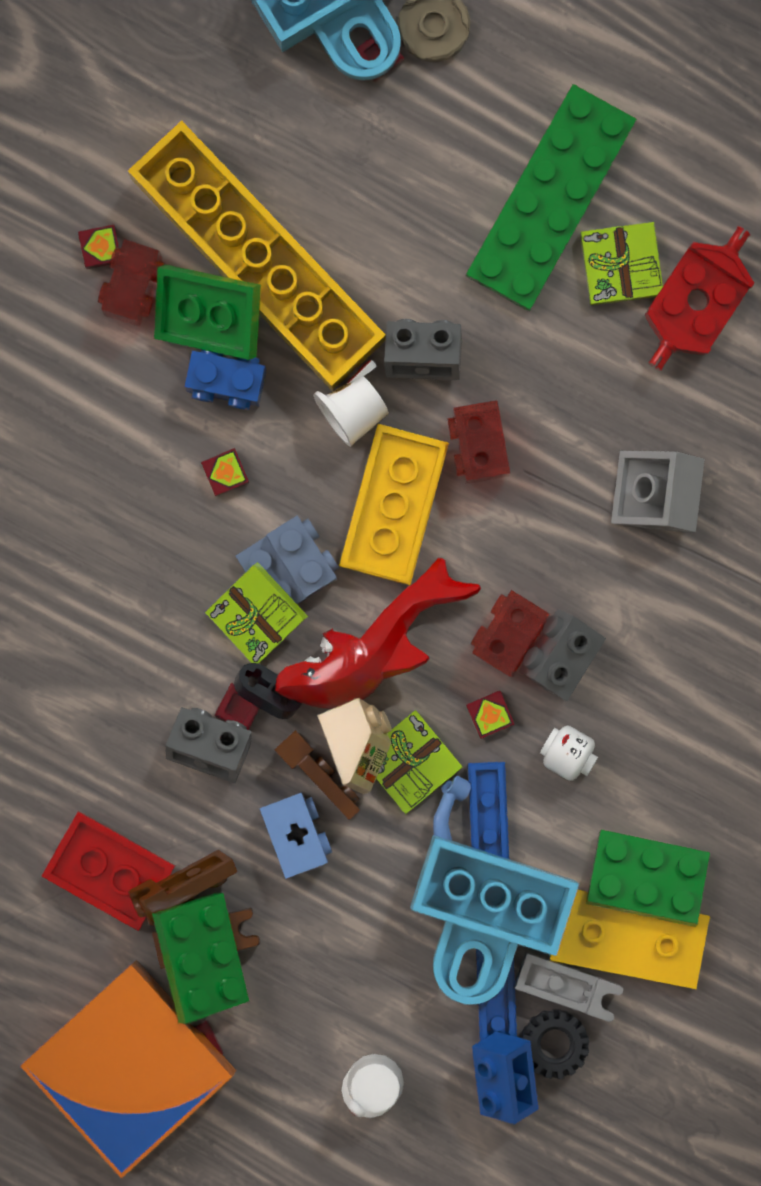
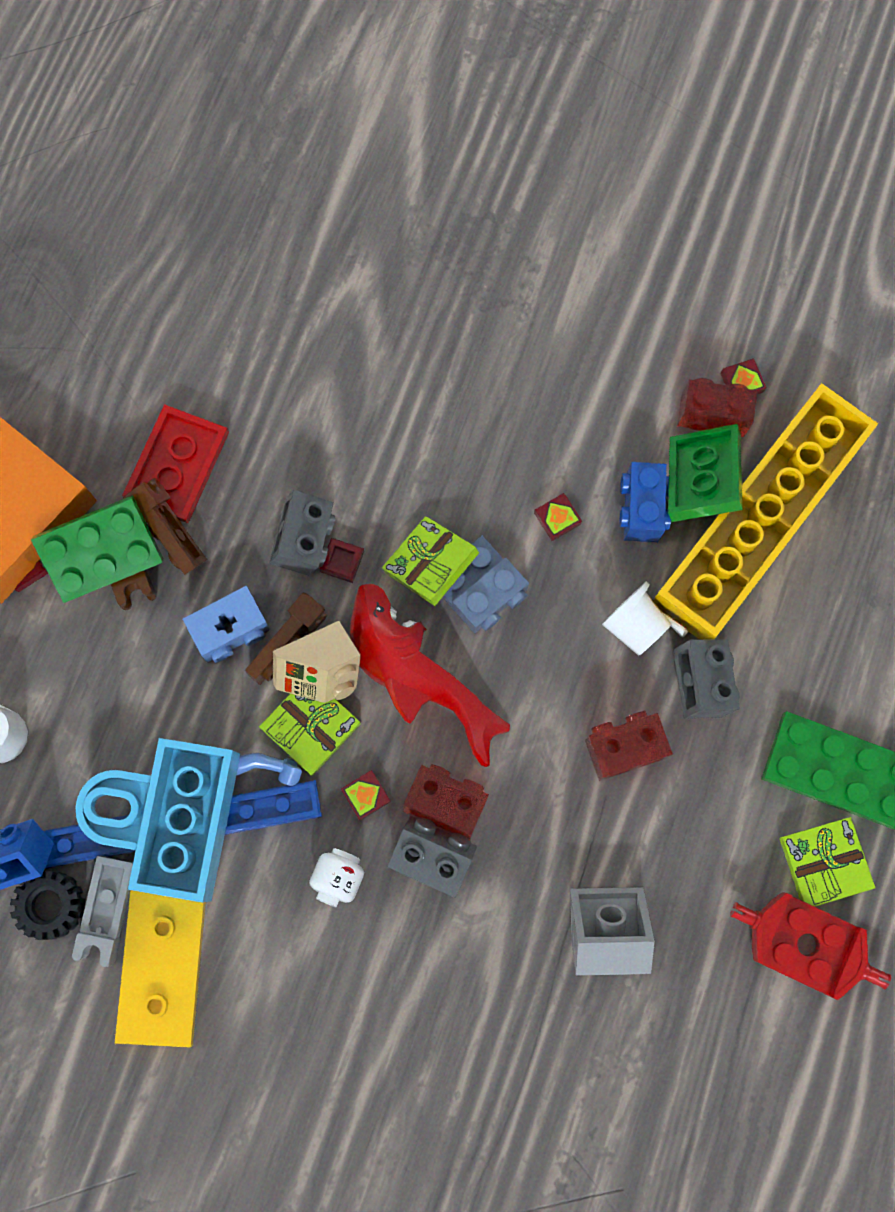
camera: 80 degrees right, 10 degrees down
(264, 692) = (356, 575): black beam -> none
(393, 504) = (554, 674): yellow plate -> none
(648, 878) = (221, 977): green plate -> none

